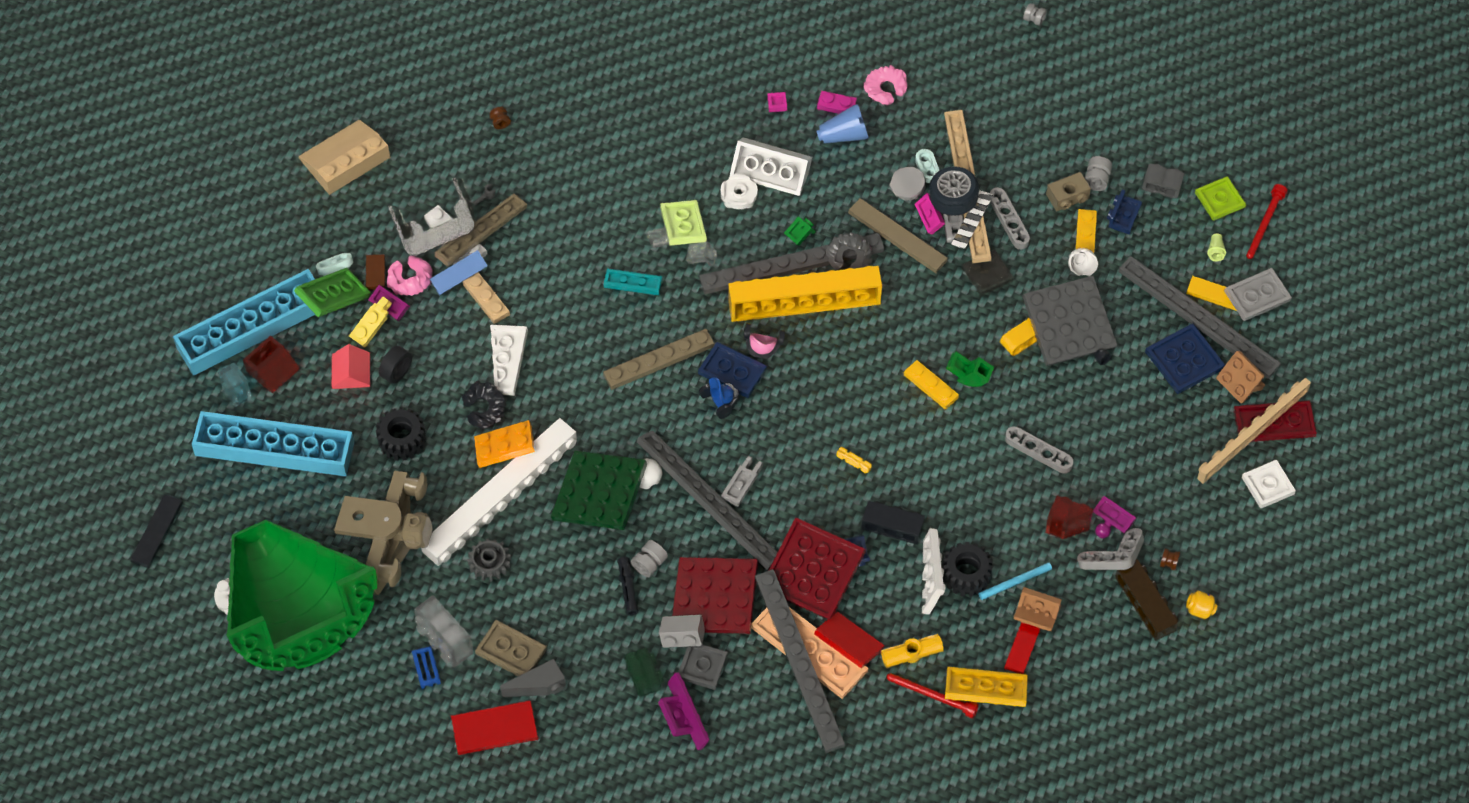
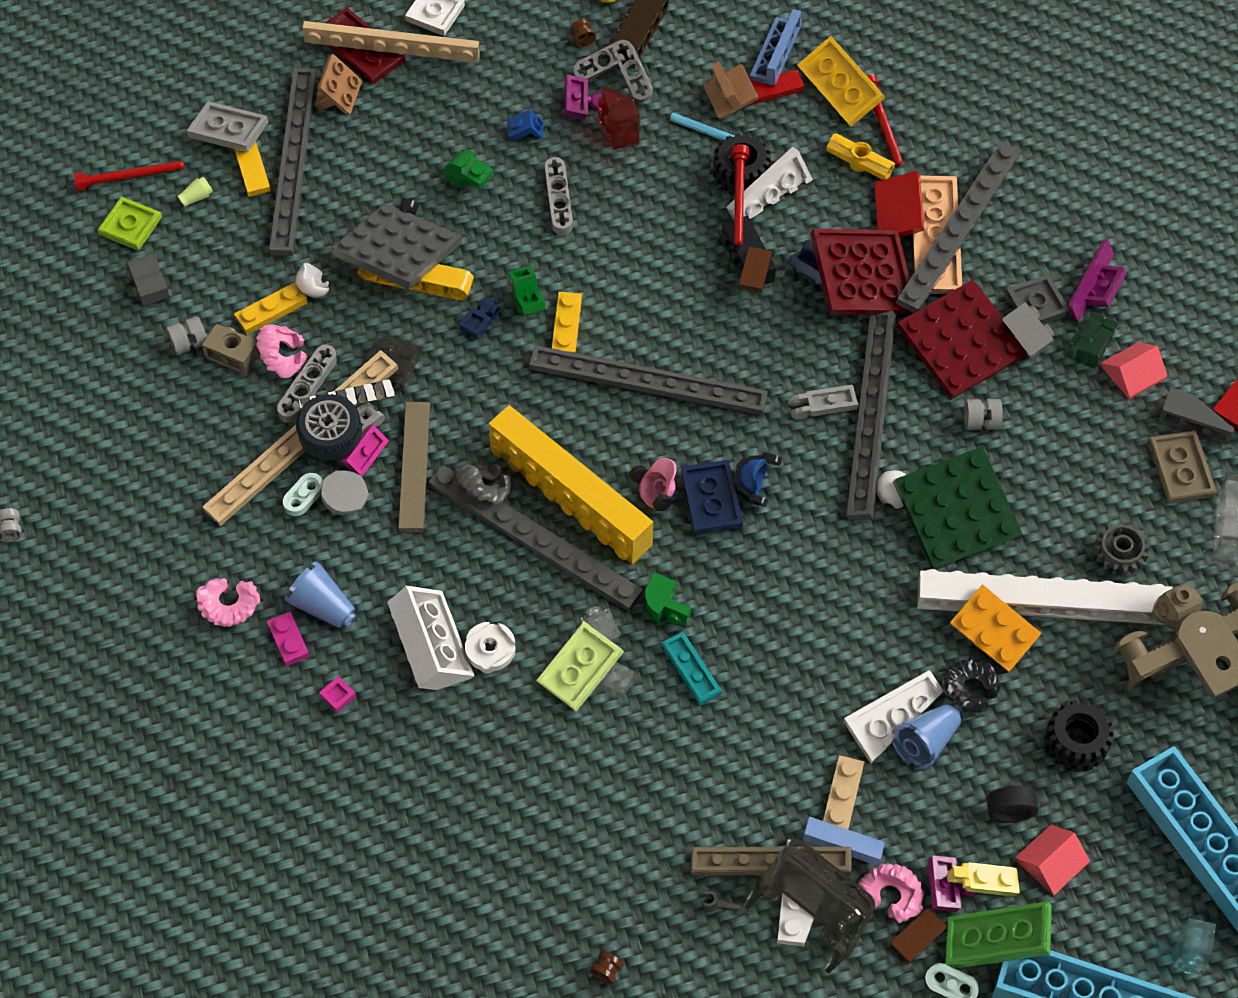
camera: 130 degrees left, 0 degrees up
(270, 364) = (1132, 938): clear red slope -> none
(475, 356) = (926, 735): none -> medium blue cone
(602, 682) = (1136, 368): none -> coral slope
(626, 578) = (1018, 423): black pin -> none
(658, 359) = (759, 575): dark tan plate -> none
(686, 290) = (660, 602): none -> green brick
(799, 230) = (489, 552): green bracket -> none
(845, 396) = (648, 380): none -> dark grey plate
(854, 460) = (710, 330): yellow axle -> none
(869, 503) = (755, 269): none -> reddish brown tile
(966, 556) = (739, 155): none -> red piece
(976, 334) = (476, 321): none -> dark blue plate
(1049, 673) = (780, 52): none -> medium blue fence
(1053, 206) = (268, 345): none -> bright pink piece
(1102, 401) = (466, 169): none -> green brick
(1114, 468) = (525, 124): none -> blue bracket
(1124, 213) = (218, 287): dark blue bracket -> none
(1185, 358) = (352, 143): dark blue plate -> none

